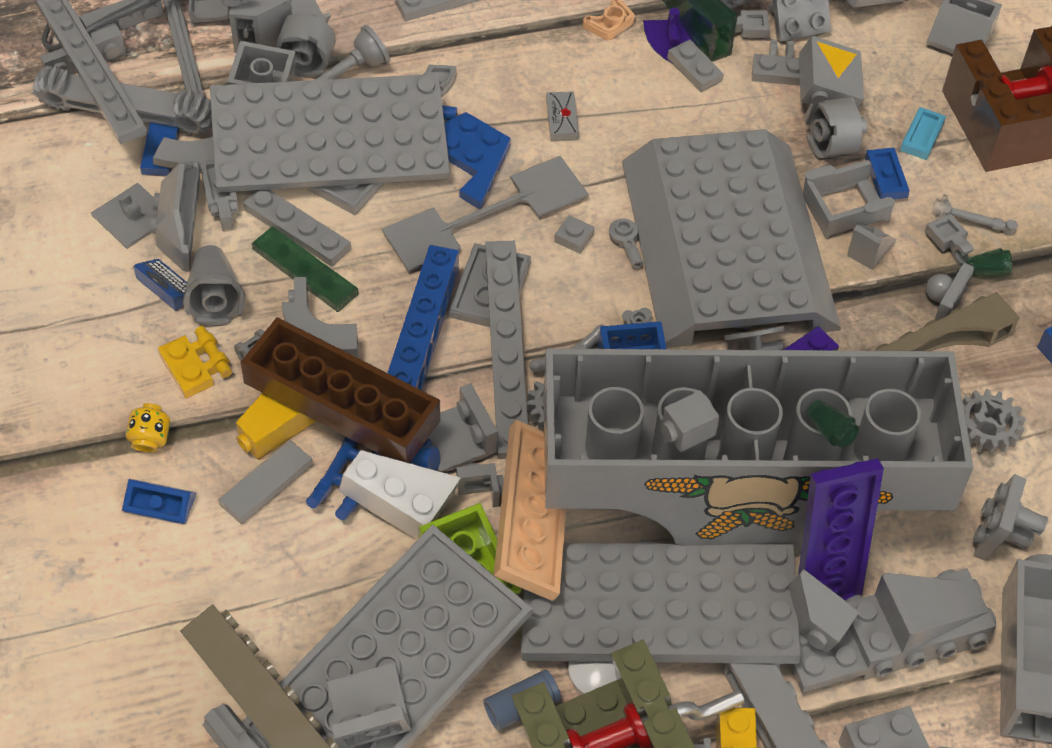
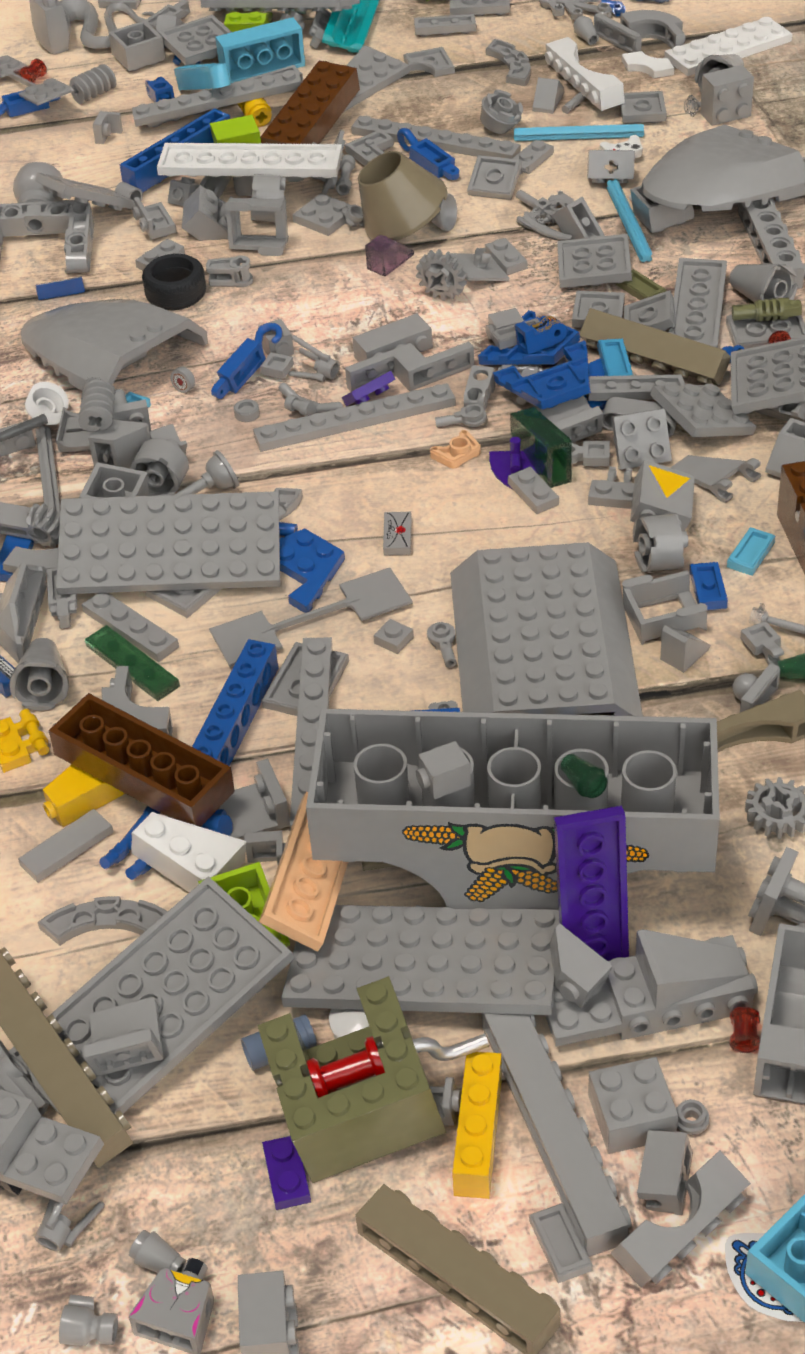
camera: 10 degrees right, 10 degrees down
(320, 558) = (101, 913): none -> light grey tile
(876, 44) = (714, 472): none -> light grey flag
(986, 667) = (744, 1029): none -> clear red bush

